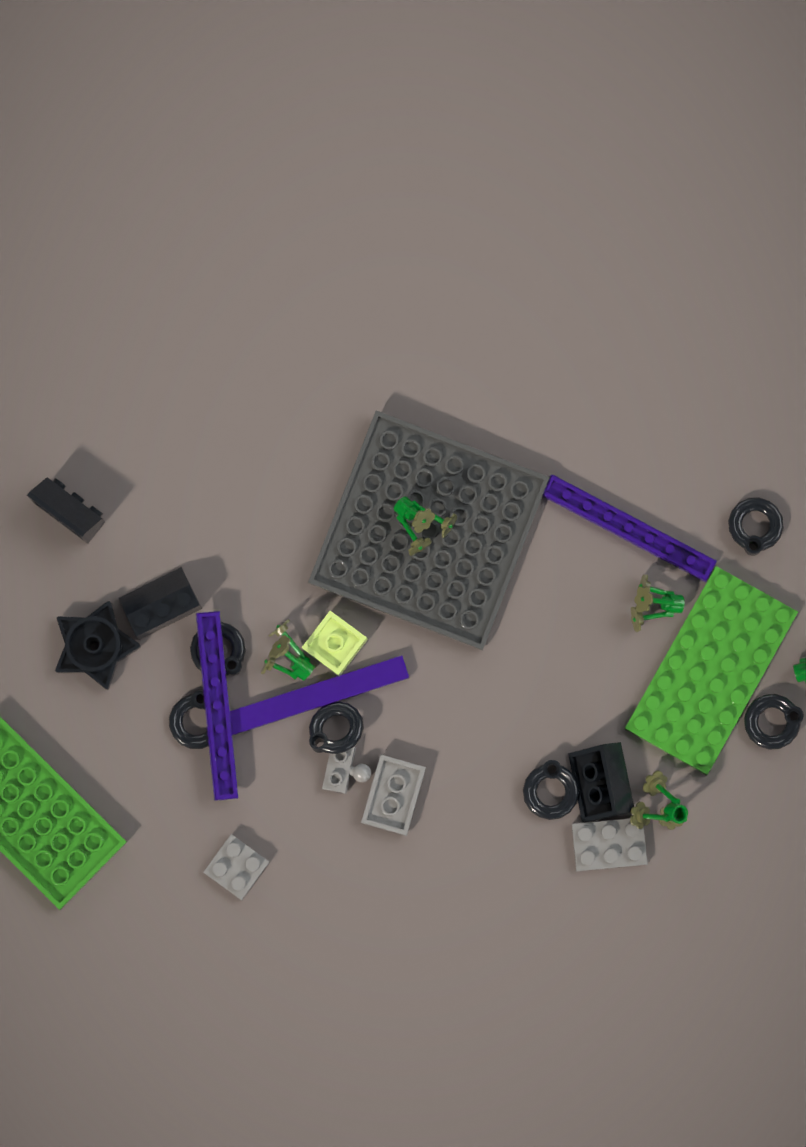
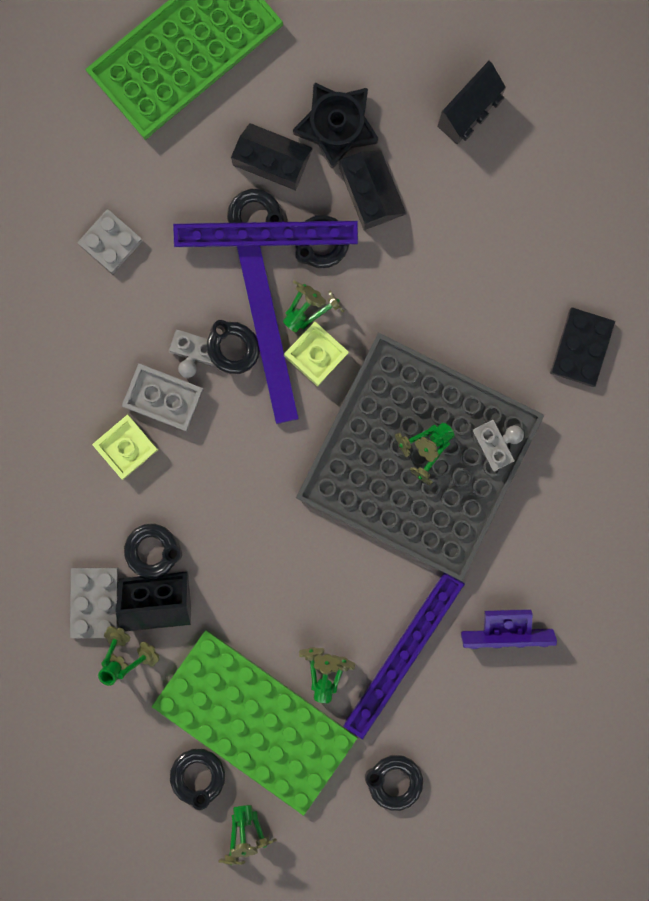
camera: 90 degrees right, 5 degrees up
(133, 708) = (271, 156): none -> black slope
(302, 378) = (582, 347): none -> black plate
(410, 455) = (495, 445): none -> light grey plate
(447, 828) = (125, 447): none -> yellowish green plate
(592, 427) = (508, 629): none -> dark purple bracket

